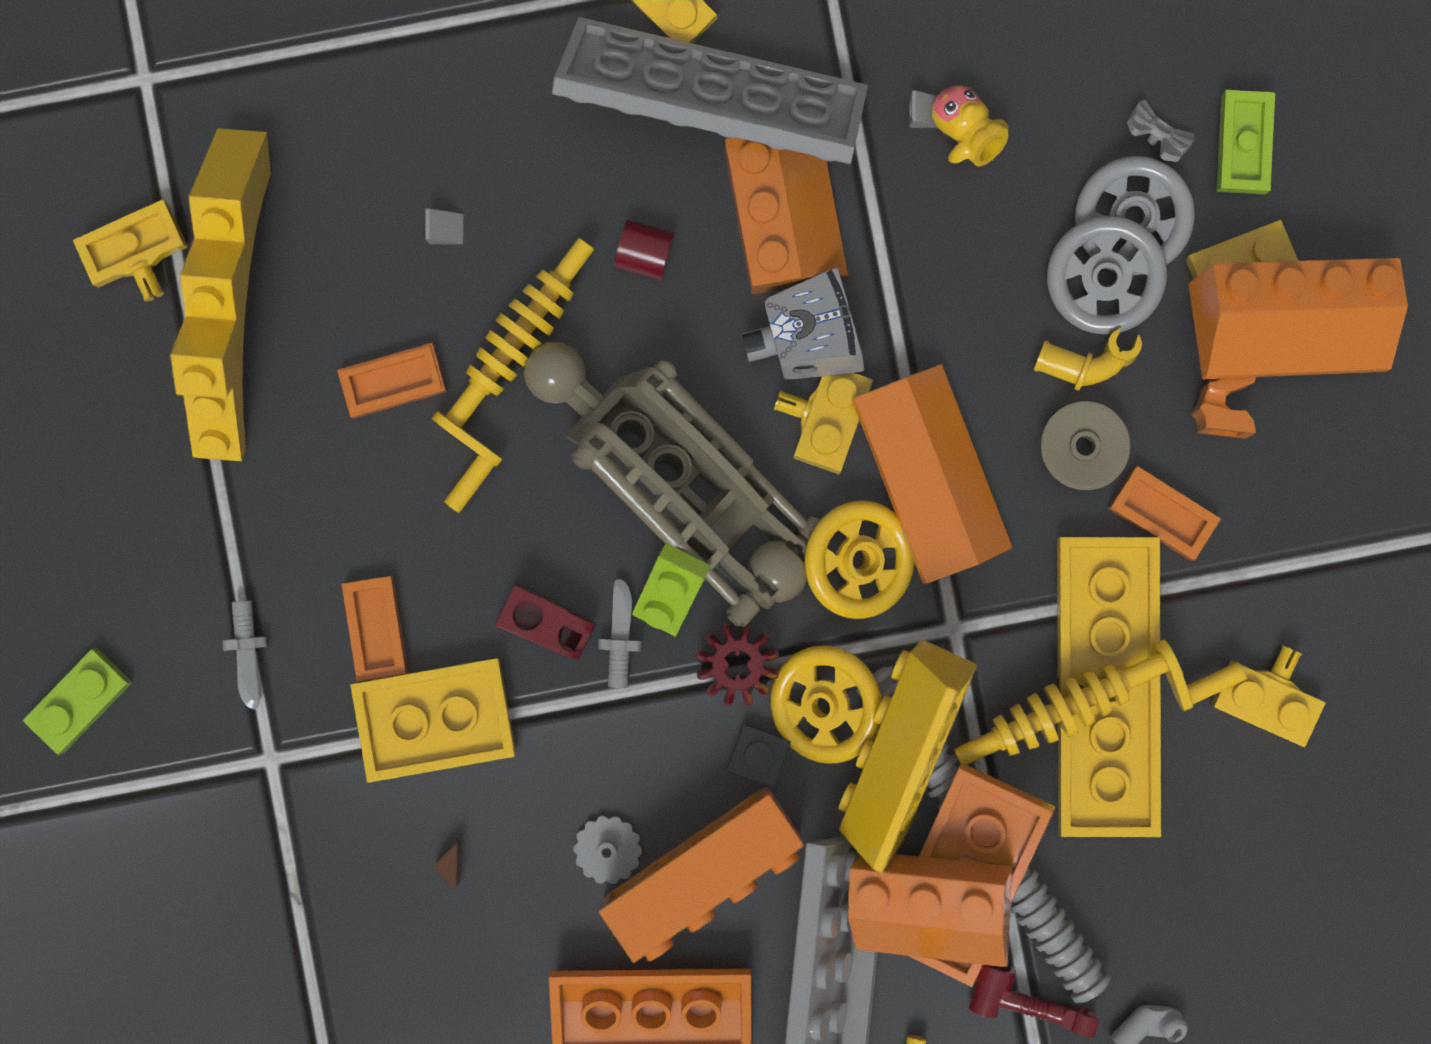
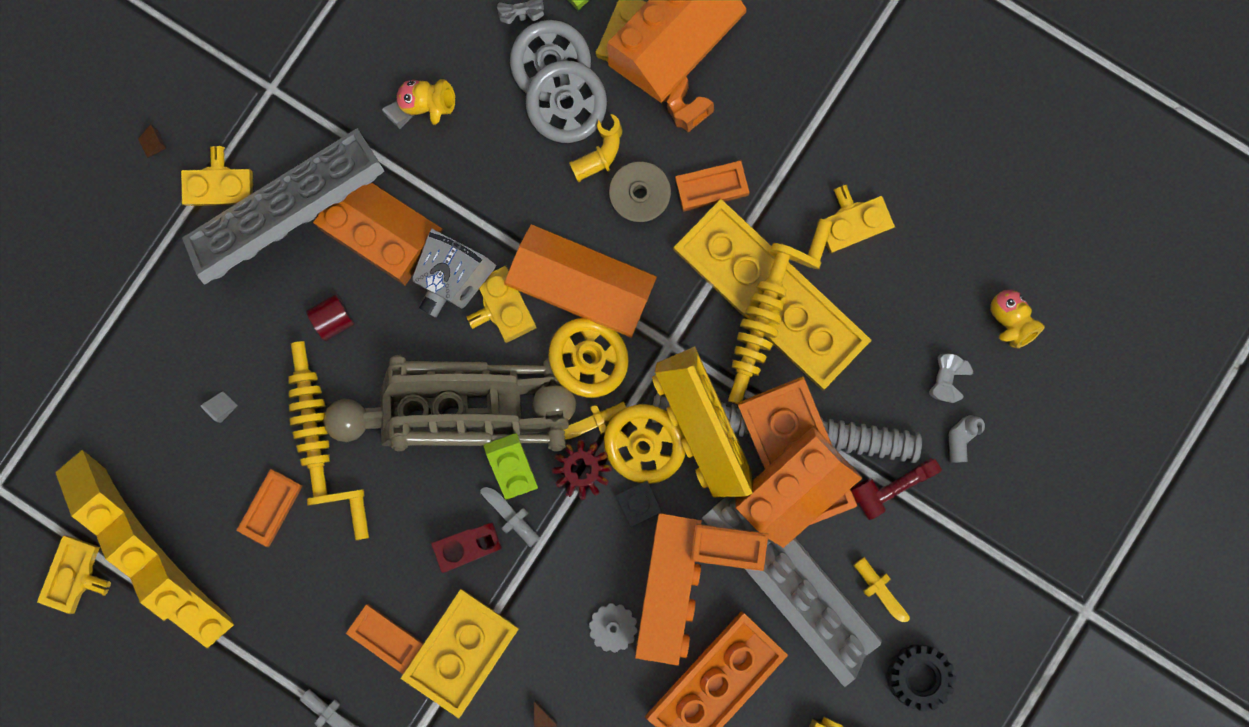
camera: 45 degrees left, 5 degrees down
(804, 630) = (598, 420): none -> yellow piece
(804, 902) = (729, 547): none -> orange tile
(1210, 942) = (949, 366): none -> light grey piece
(1332, 960) = (1015, 314): none -> yellow animal

